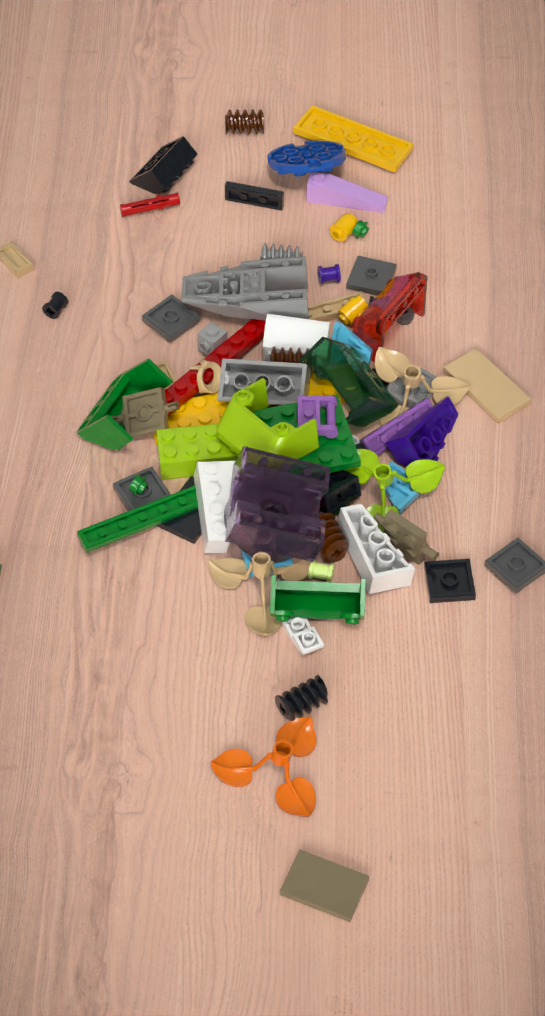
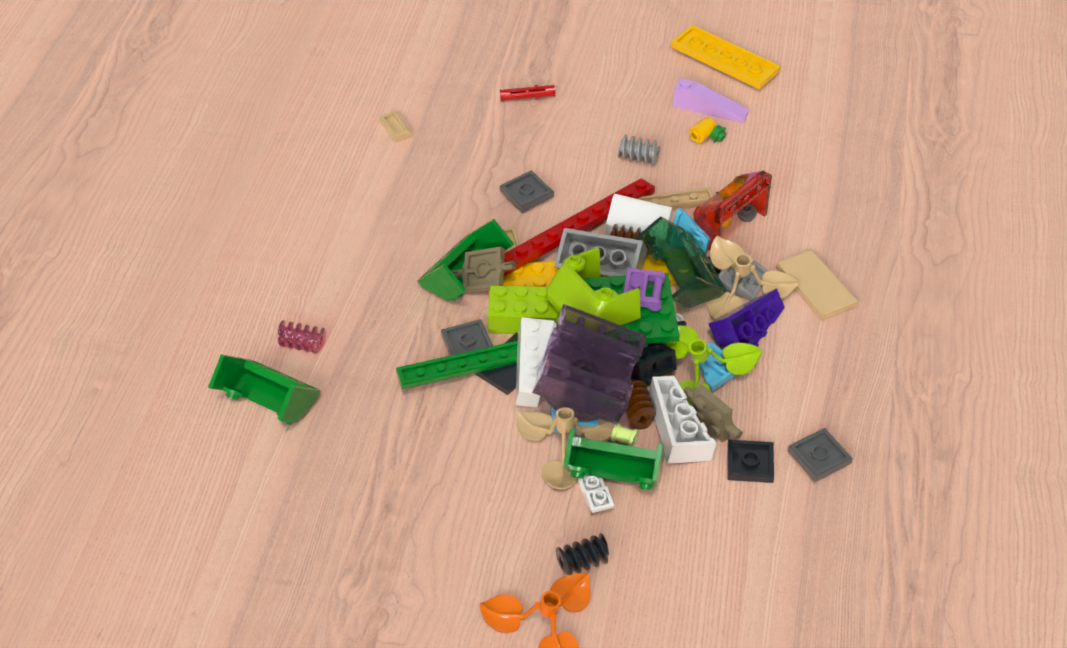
camera: 10 degrees right, 5 degrees down
(54, 306) = (422, 168): black bush -> none
(138, 485) = (463, 333): green plate -> none
(165, 166) = (548, 62): black slope -> none
(211, 338) = (559, 211): light grey brick -> none
(213, 386) = (551, 255): tan piece -> none
(243, 289) = (605, 172): light grey wedge -> none
(244, 121) = (627, 32): reddish brown piece -> none
(254, 195) = (624, 94): black tile -> none
(307, 158) = (684, 66): blue plate -> none
(329, 274) = (681, 168): dark purple bush -> none
(351, 308) = (696, 200): yellow brick -> none
(370, 275) = (719, 173): dark grey plate -> none
(377, 439) = (700, 320): medium lavender tile -> none

